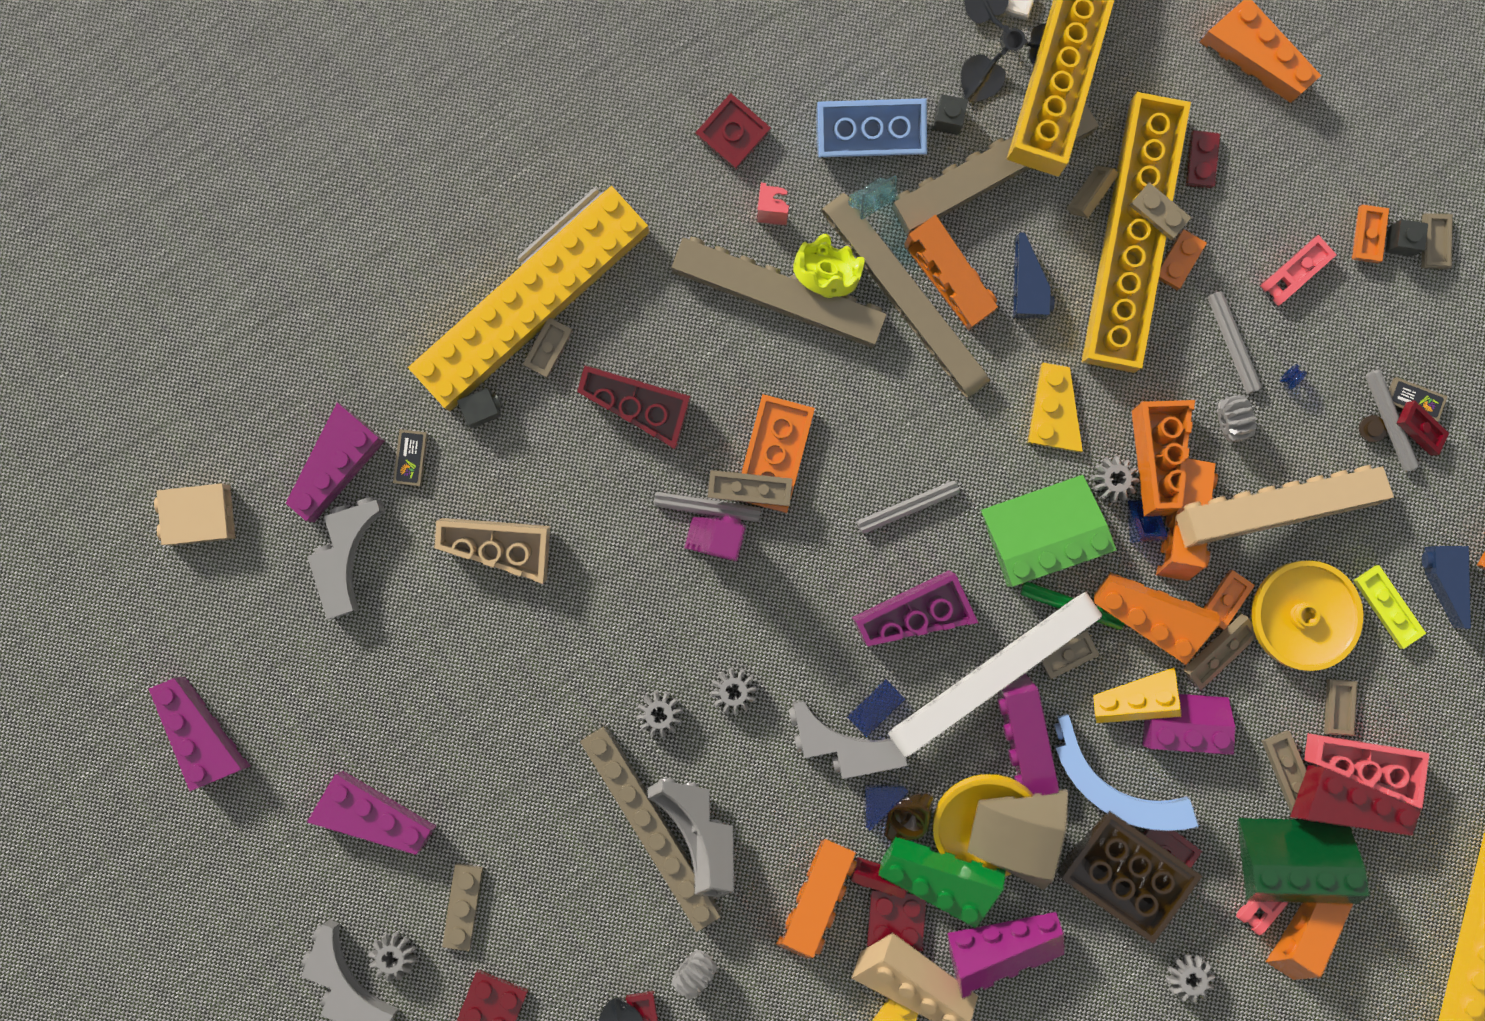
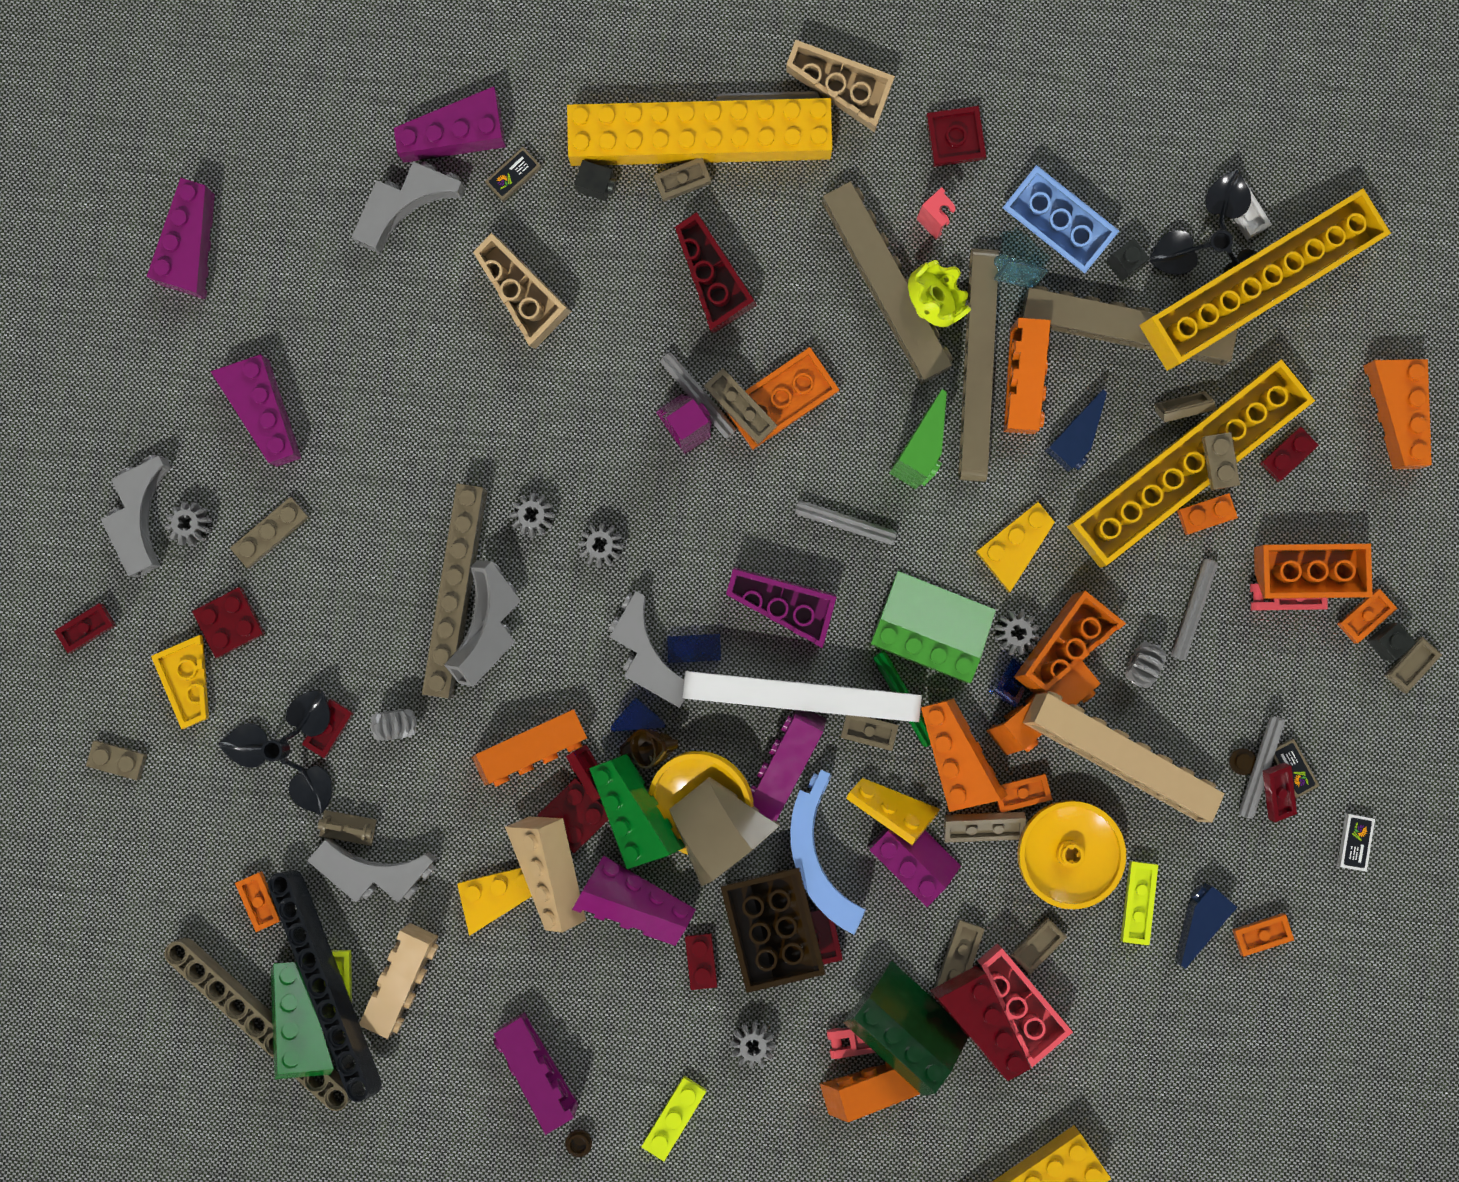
camera: 45 degrees right, 0 degrees up
(195, 514) = (322, 82): tan brick -> none
(614, 163) = (849, 84): none -> tan wedge
(922, 396) = (921, 454): none -> bright green slope
(1093, 947) = (701, 961): none -> dark red plate
(1293, 376) = (1216, 671): clear blue bush -> none
(1302, 234) = (1314, 570): none -> orange slope

